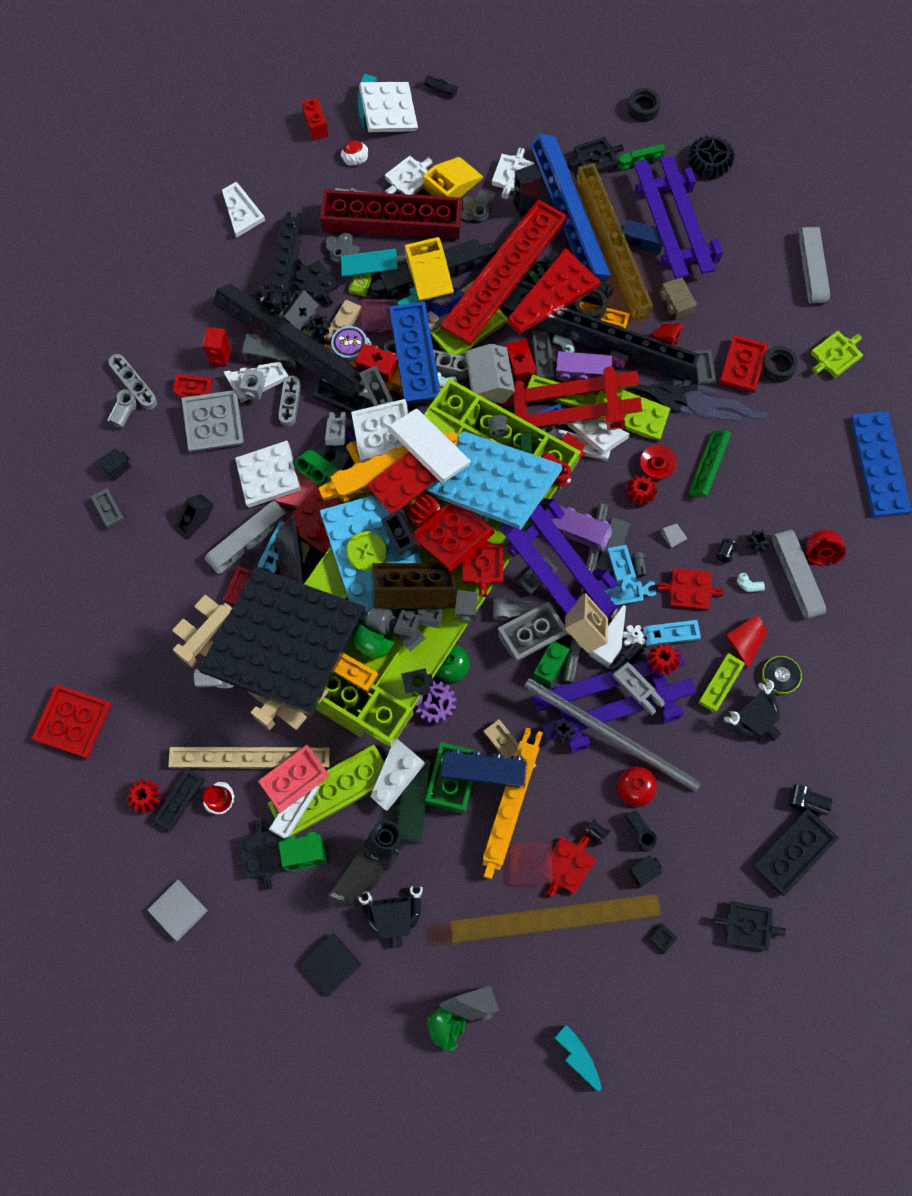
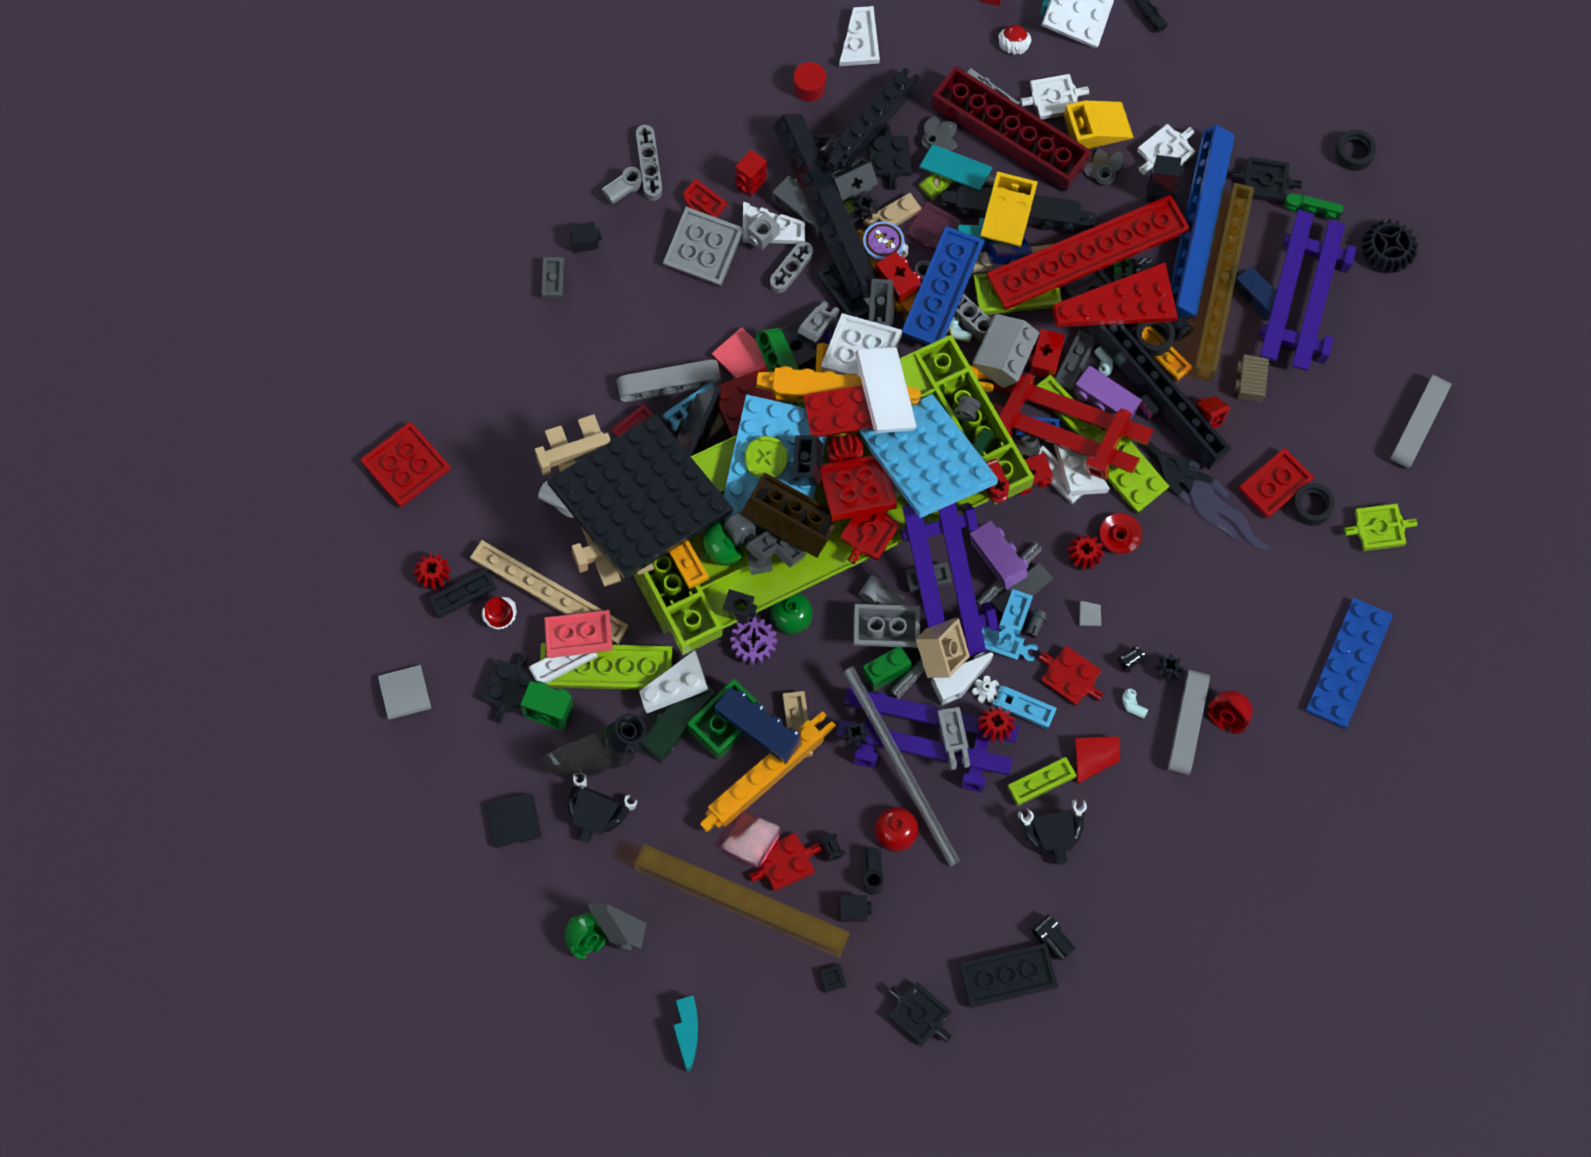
camera: 25 degrees right, 0 degrees up
(193, 515) = (630, 330): black slope -> none
(221, 259) = (809, 81): none -> red piece
(268, 474) = (726, 329): white plate -> none
(466, 606) = (828, 562): dark grey brick -> none
(629, 656) = (967, 704): black axle -> none
(705, 369) = (1233, 465): dark grey tile -> none
(709, 463) = (1172, 564): green plate -> none
(783, 673) = (1106, 808): black tile -> none

